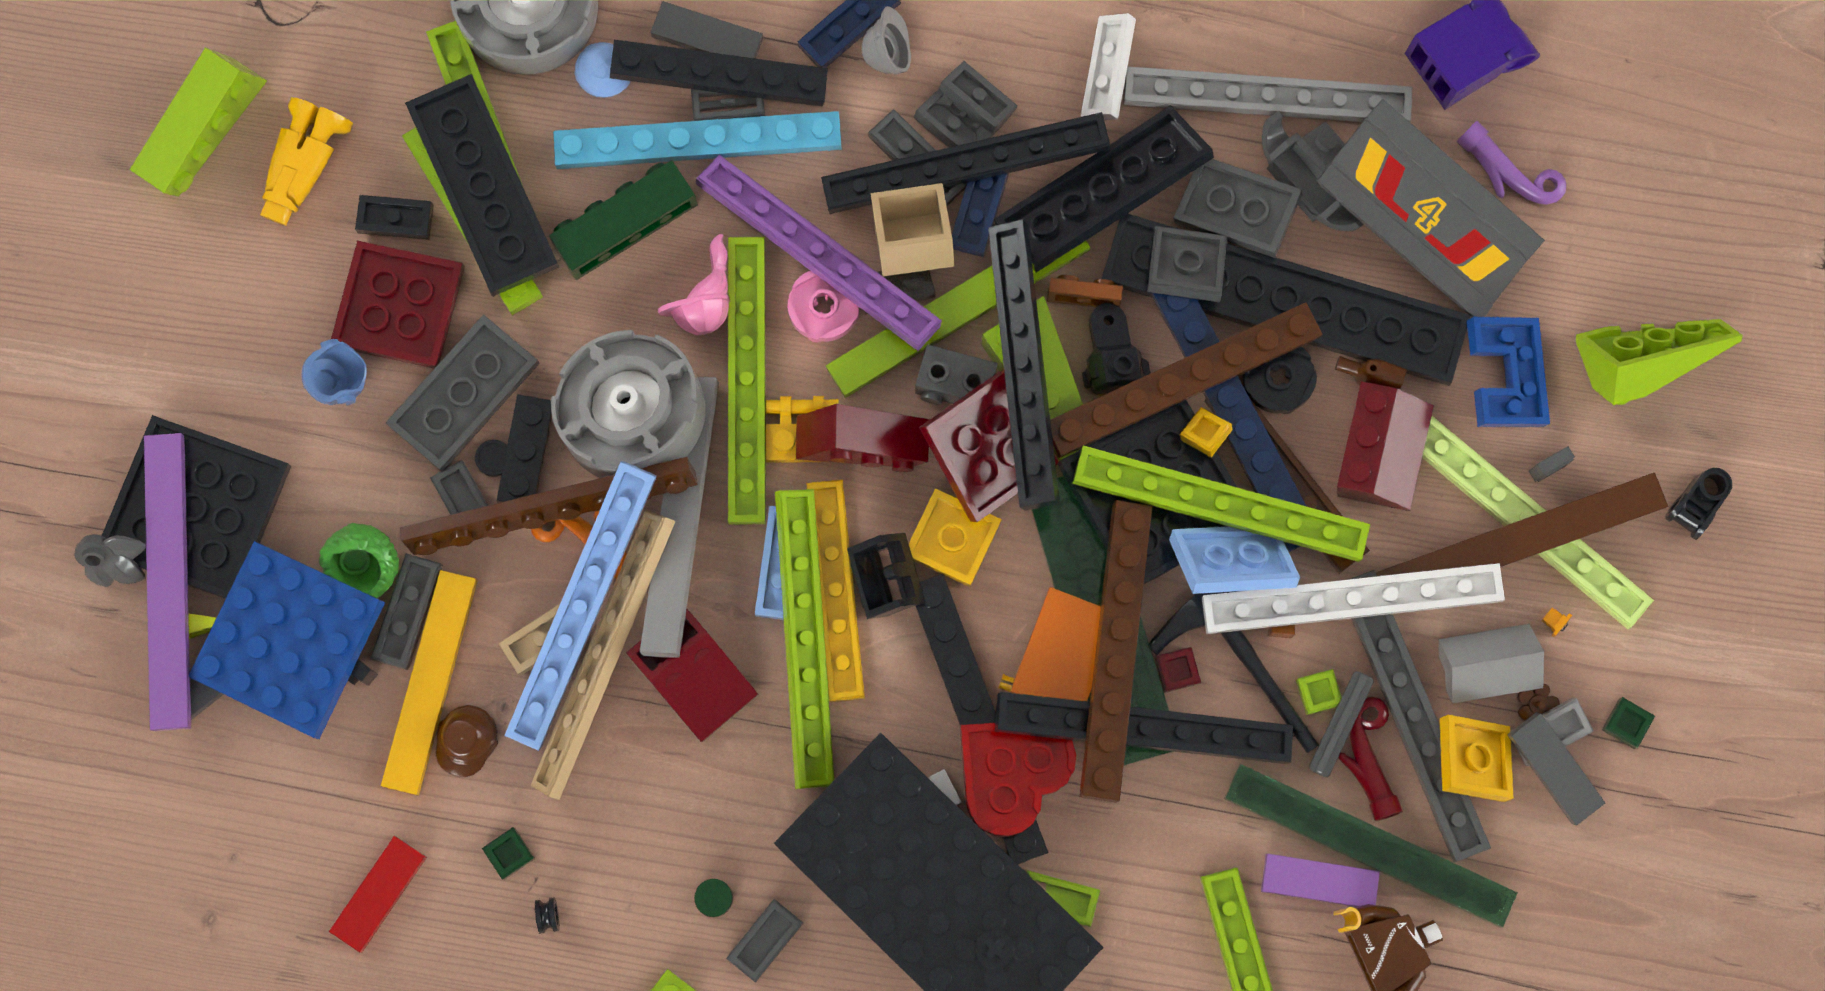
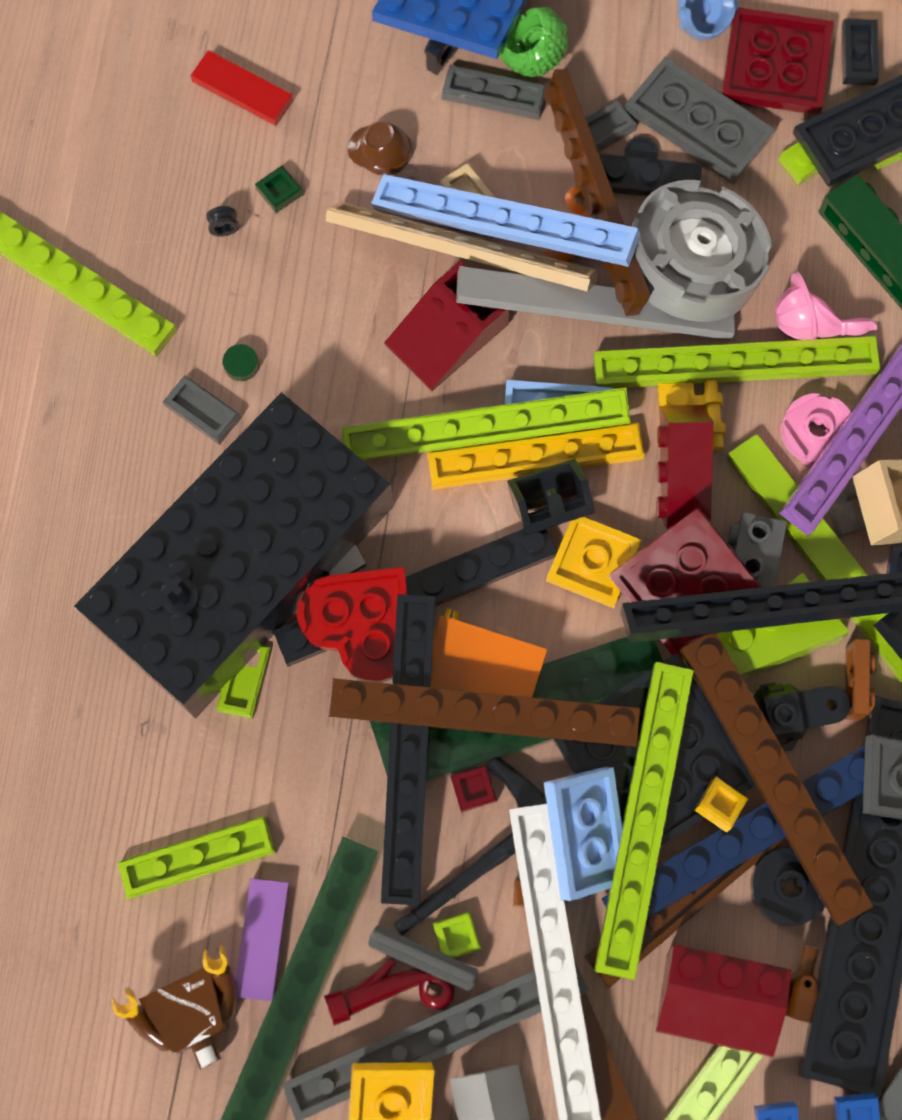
camera: 90 degrees right, 5 degrees down
(429, 683) = (431, 114): yellow tile -> none

